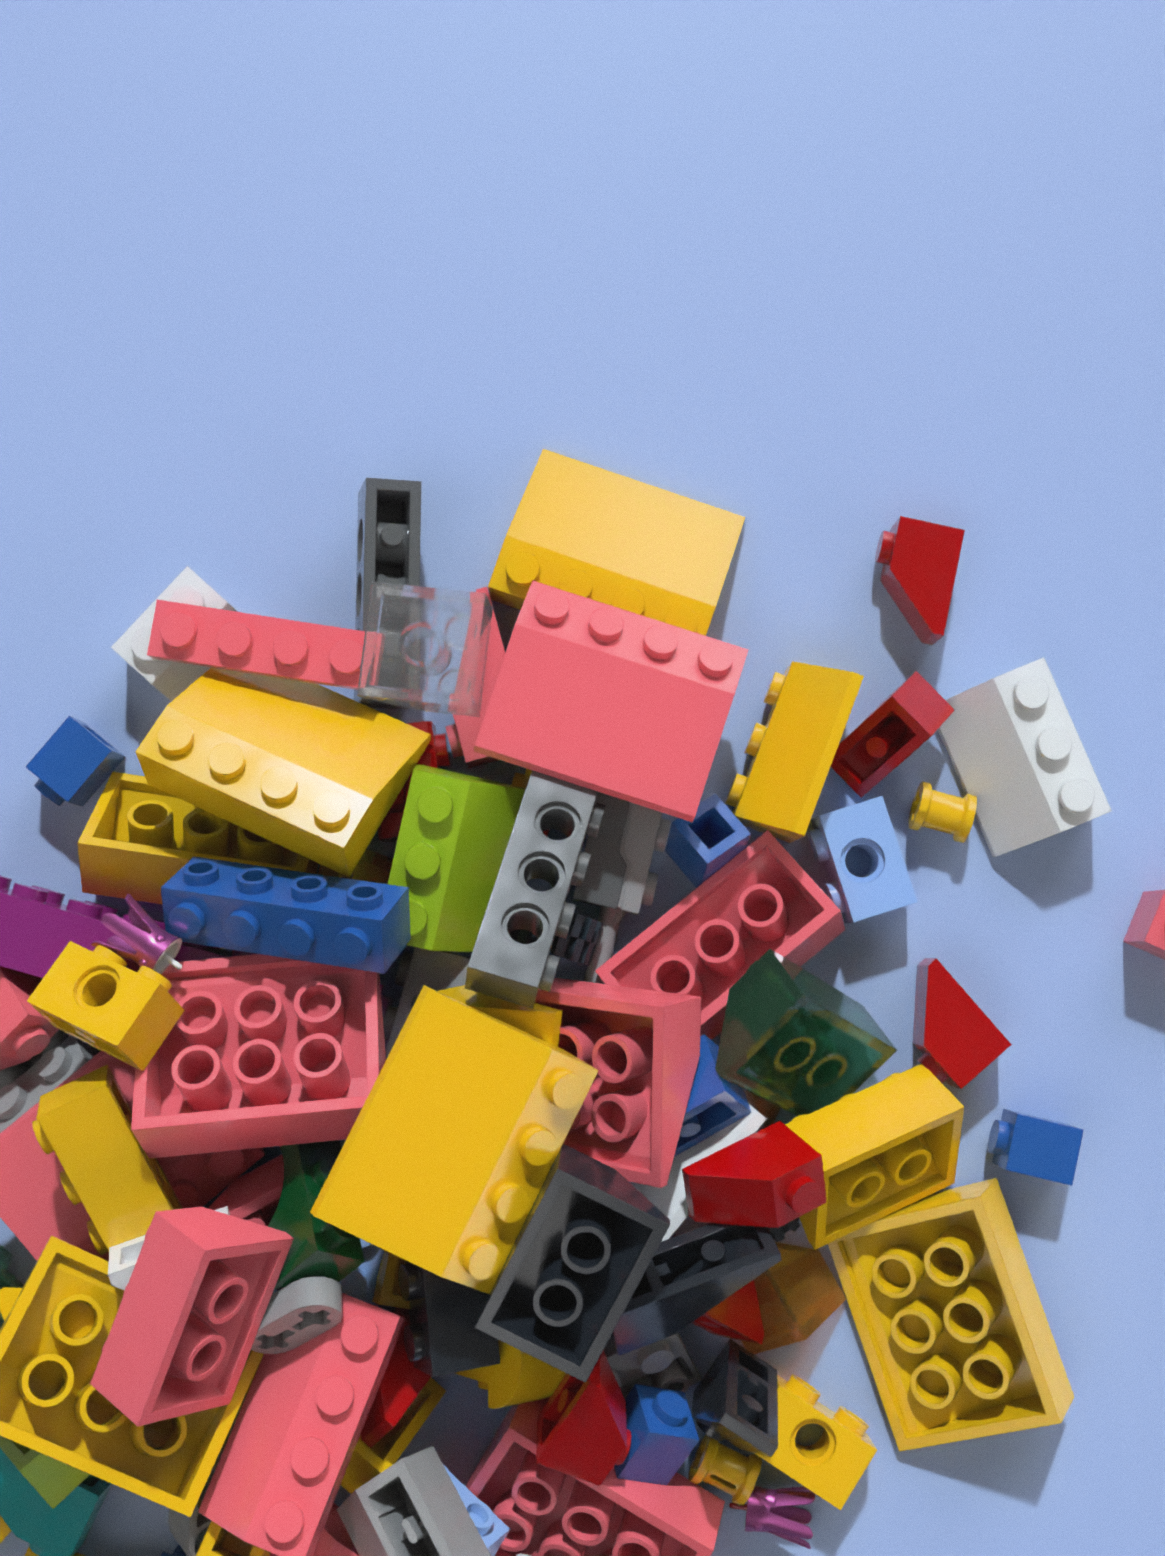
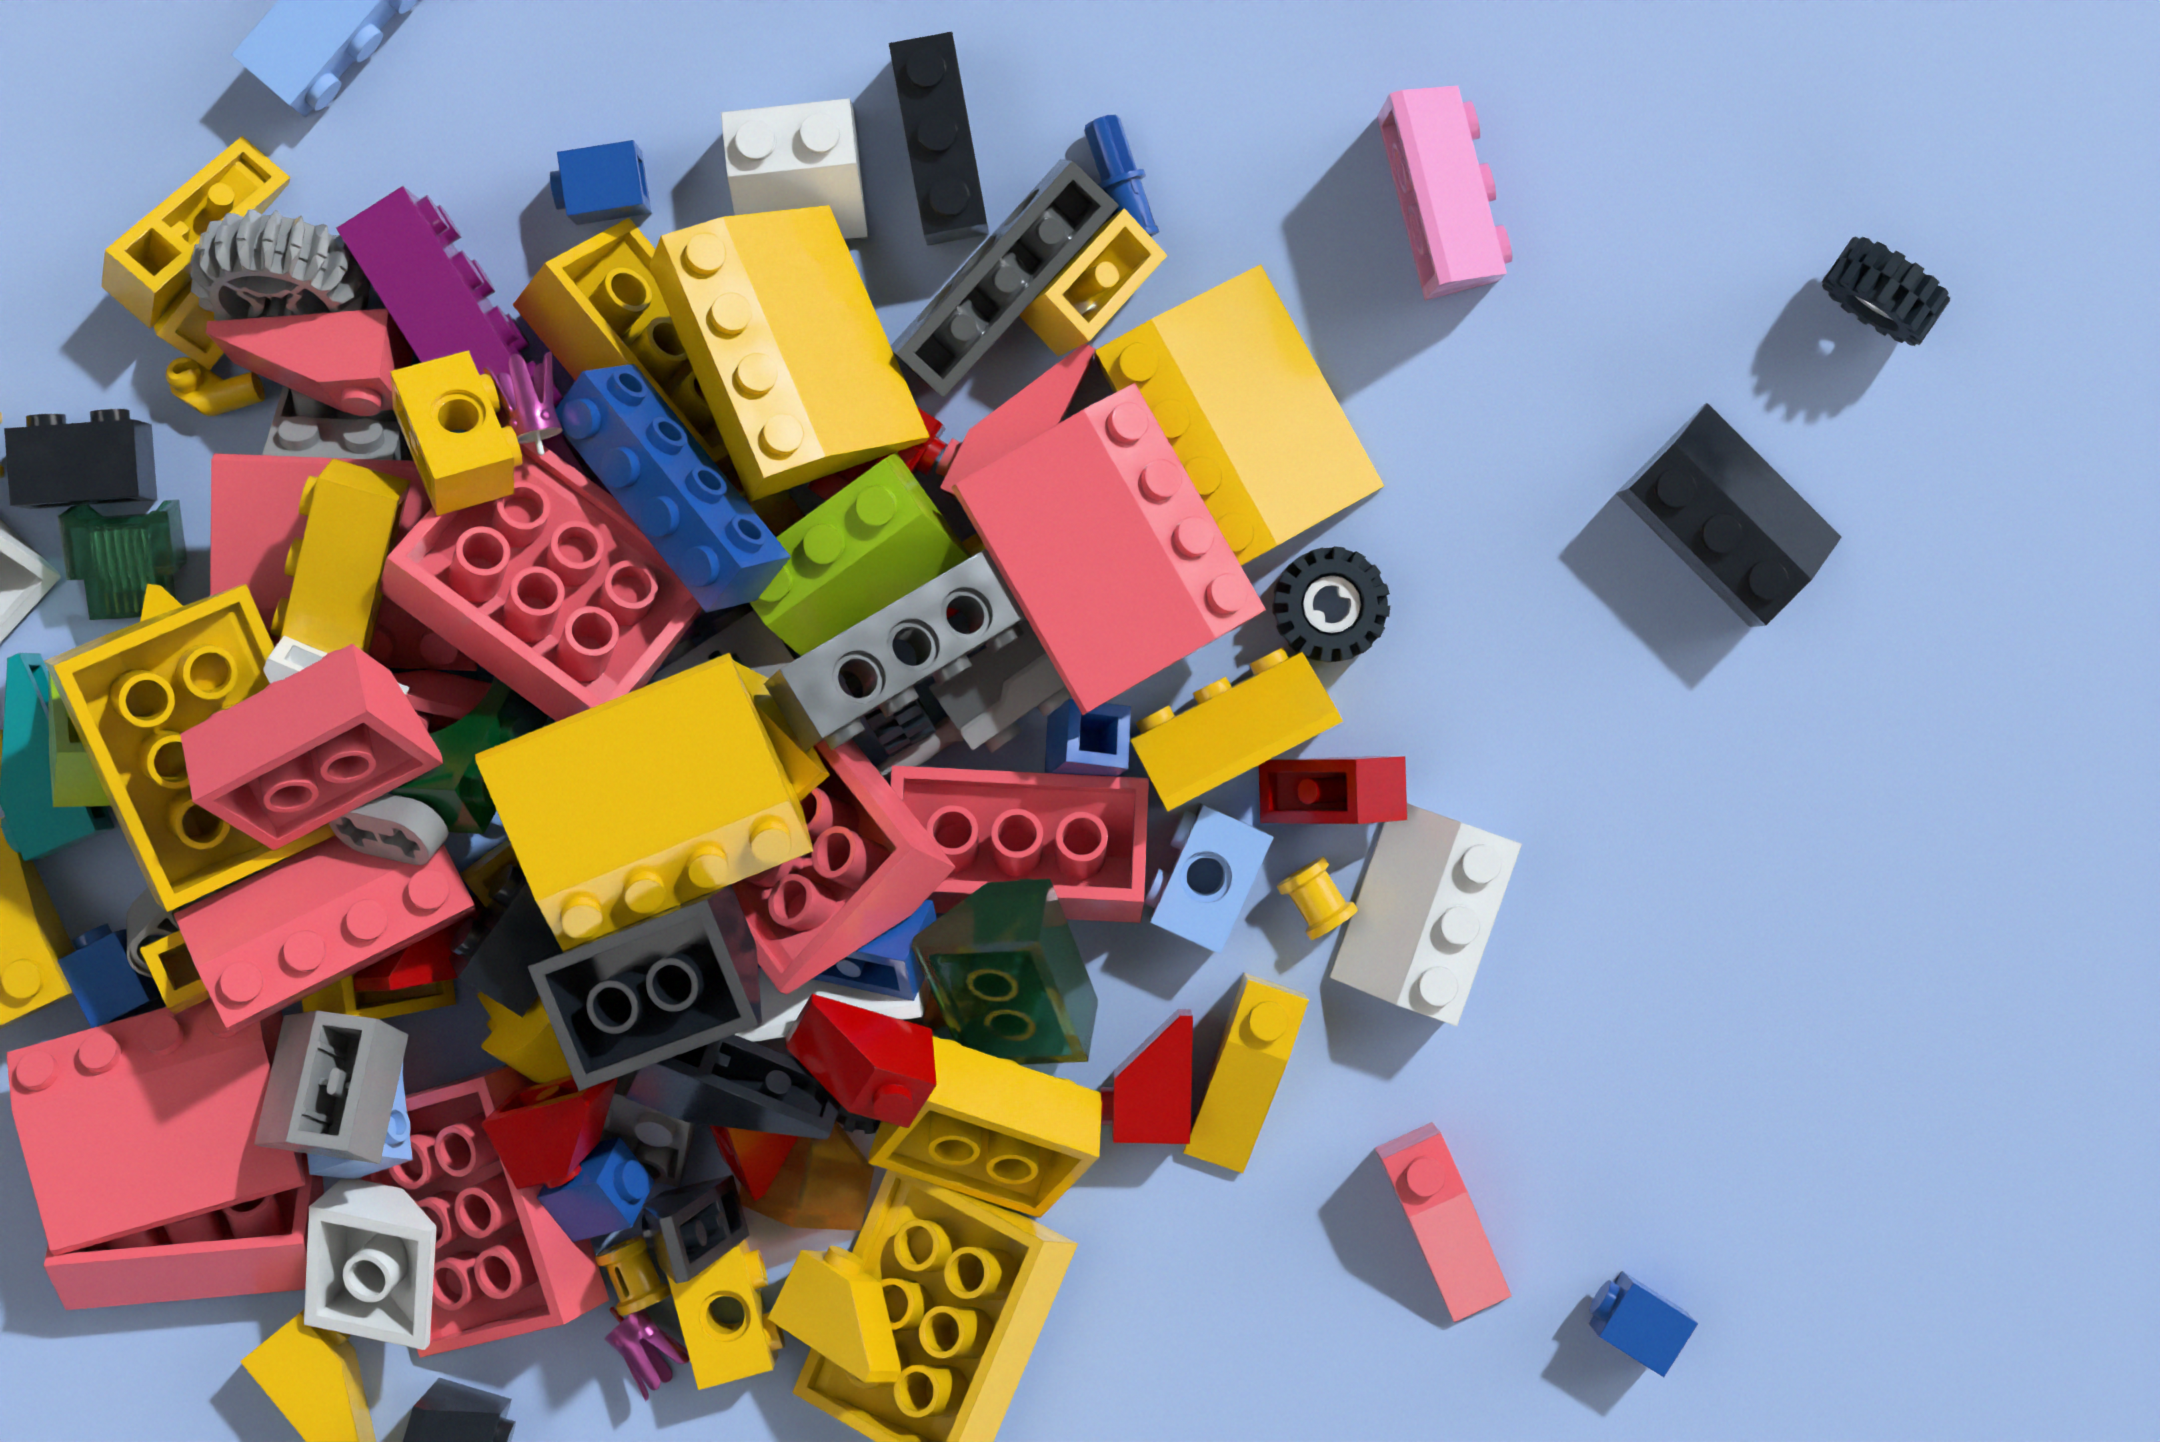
camera: 45 degrees right, 5 degrees up
(256, 644) = (854, 234): coral plate -> none
(269, 544) = (938, 138): none -> black brick
(395, 464) = (1118, 170): none -> blue axle
(426, 648) = (989, 361): clear slope -> none
(450, 538) = (1093, 284): none -> yellow slope
(615, 301) = (1443, 190): none -> bright pink slope
(780, 646) = (1306, 627): none -> black bush
(887, 1370) = (839, 1314): none -> yellow slope
(920, 572) = (1491, 673): red slope -> none
(946, 121) = (1886, 291): none -> black bush
(978, 348) = (1730, 517): none -> black slope
(1000, 963) = (1246, 1072): none -> yellow slope
(1035, 1146) = (1135, 1247): blue brick -> none

